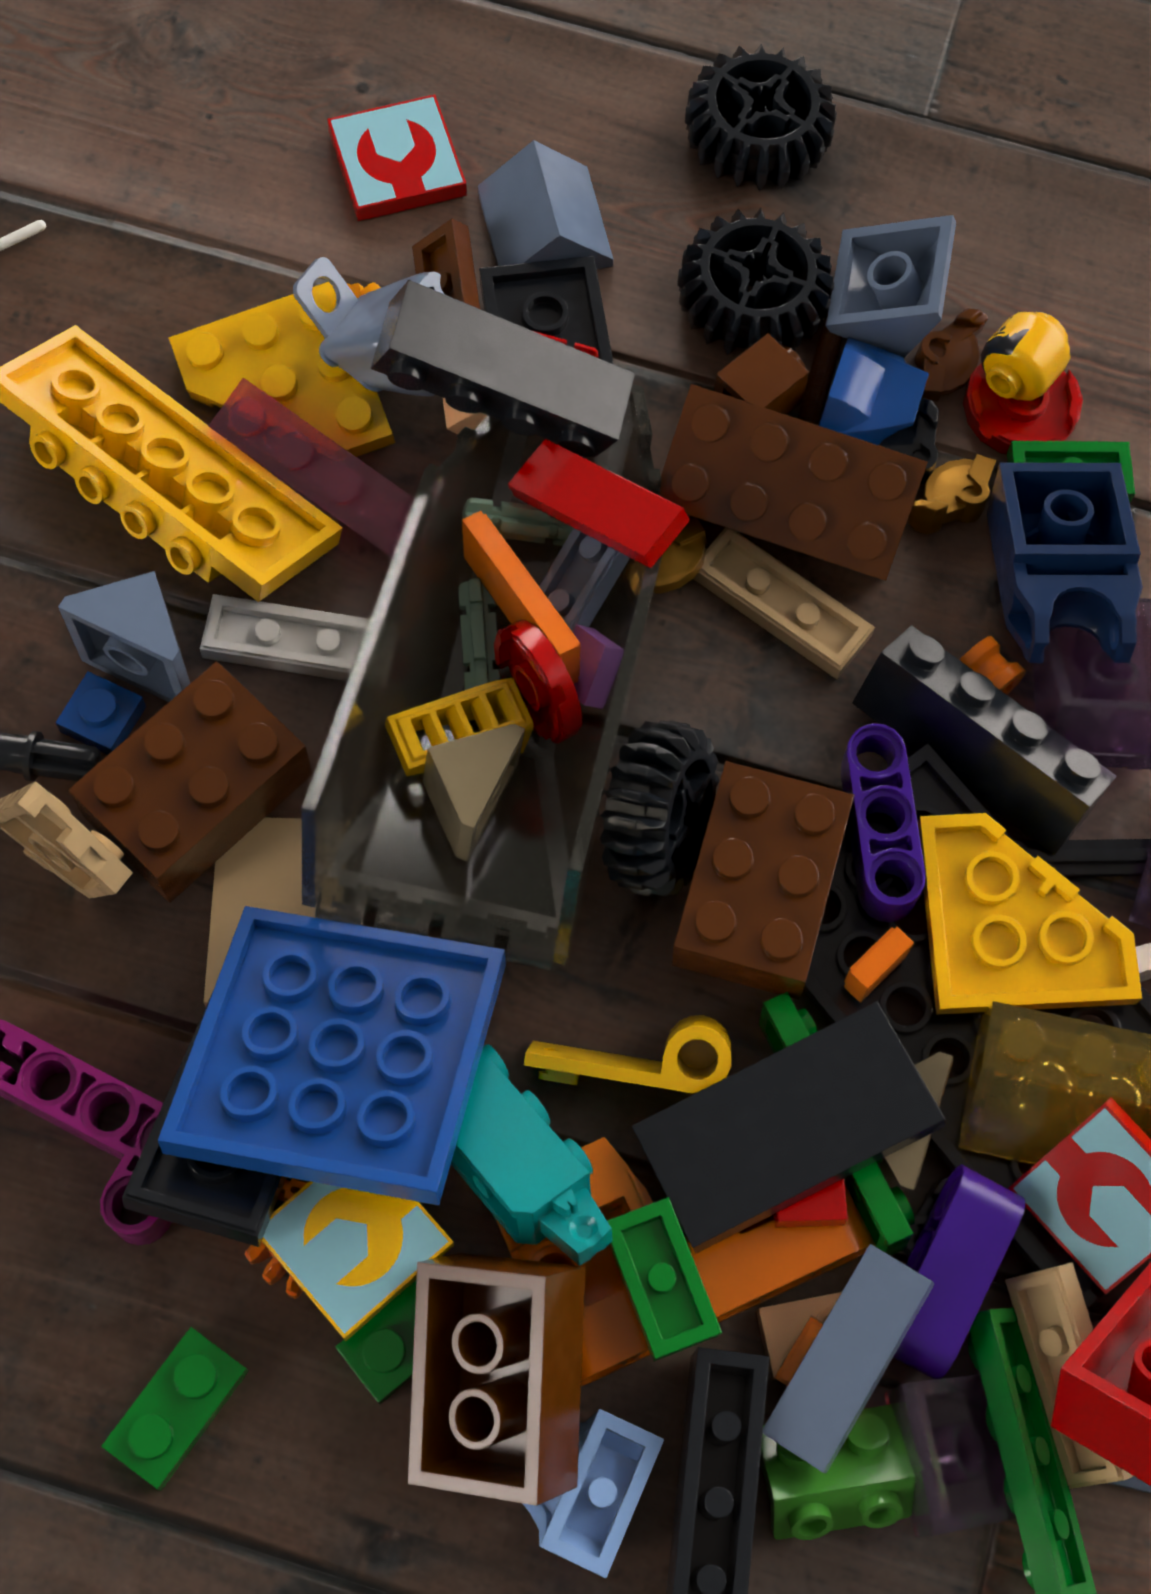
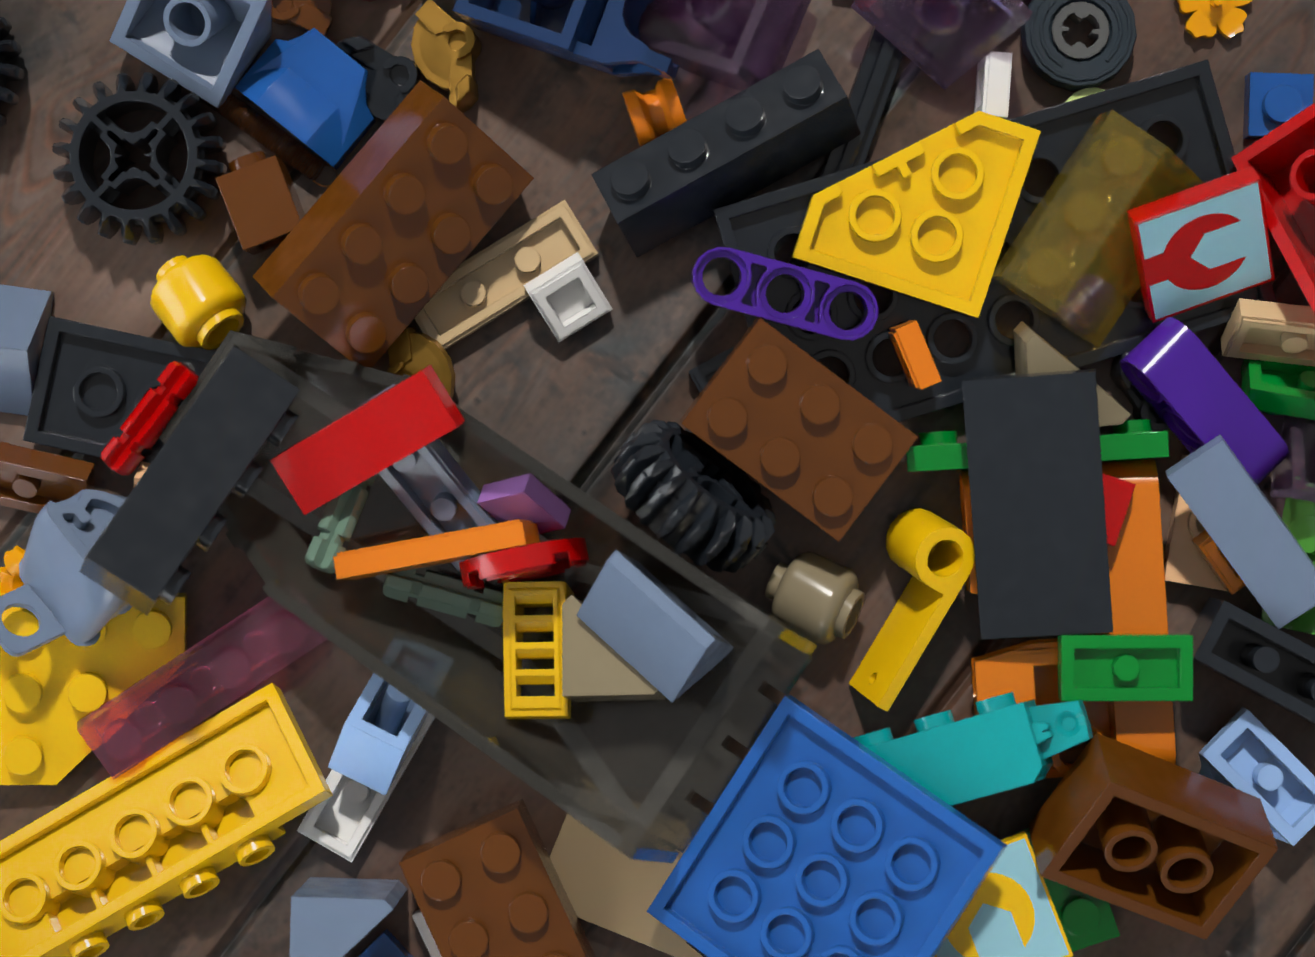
camera: 65 degrees left, 20 degrees up
(326, 614) = (377, 735): none -> light blue slope
(527, 802) = (651, 627): none -> sand blue slope
(605, 970) = (816, 597): none -> dark tan head
(660, 358) = (198, 301): none -> yellow head
(790, 658) = (568, 297): none -> white tile

